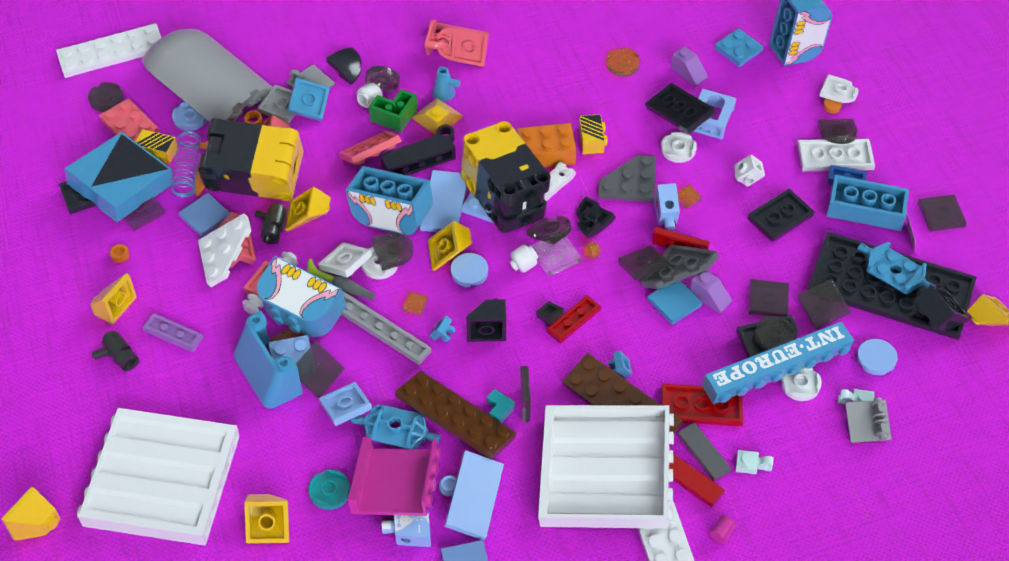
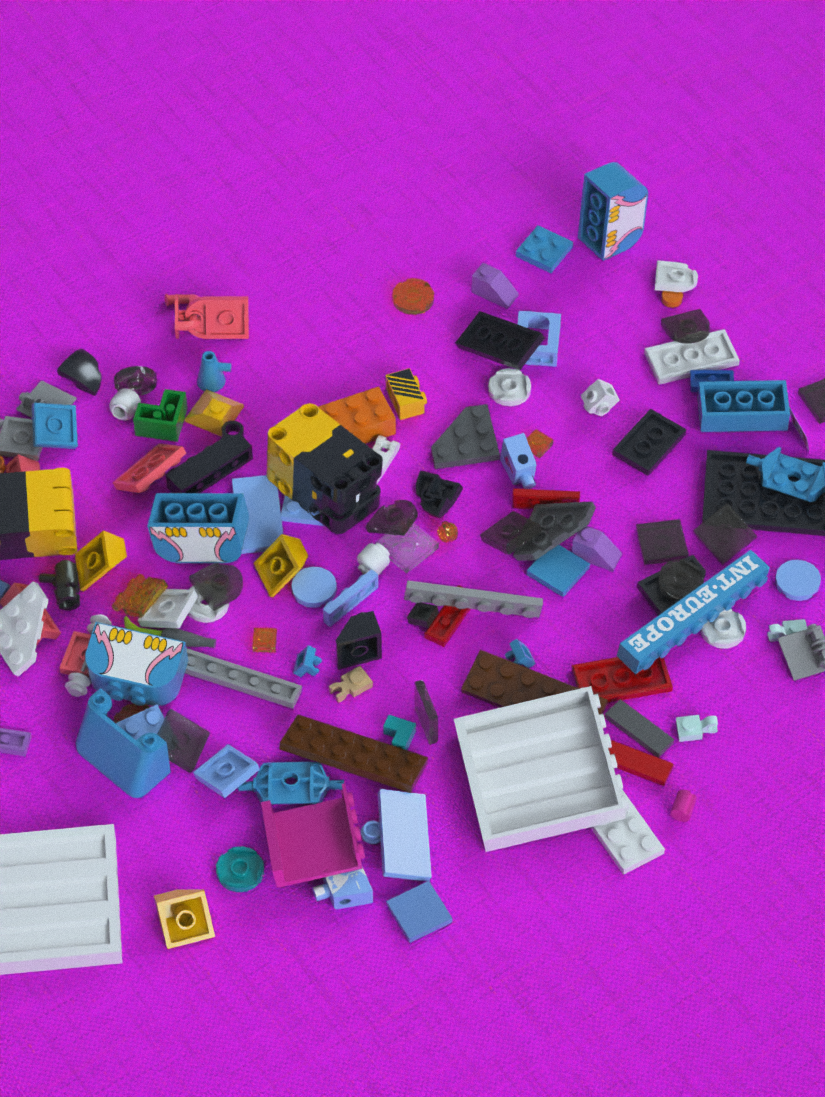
camera: 15 degrees left, 0 degrees up
(327, 244) = (145, 595): none -> clear yellow plate
(474, 355) = (351, 683): none -> tan plate
(495, 285) = (350, 598): none -> light blue plate
(595, 309) = (473, 599): none -> light grey plate

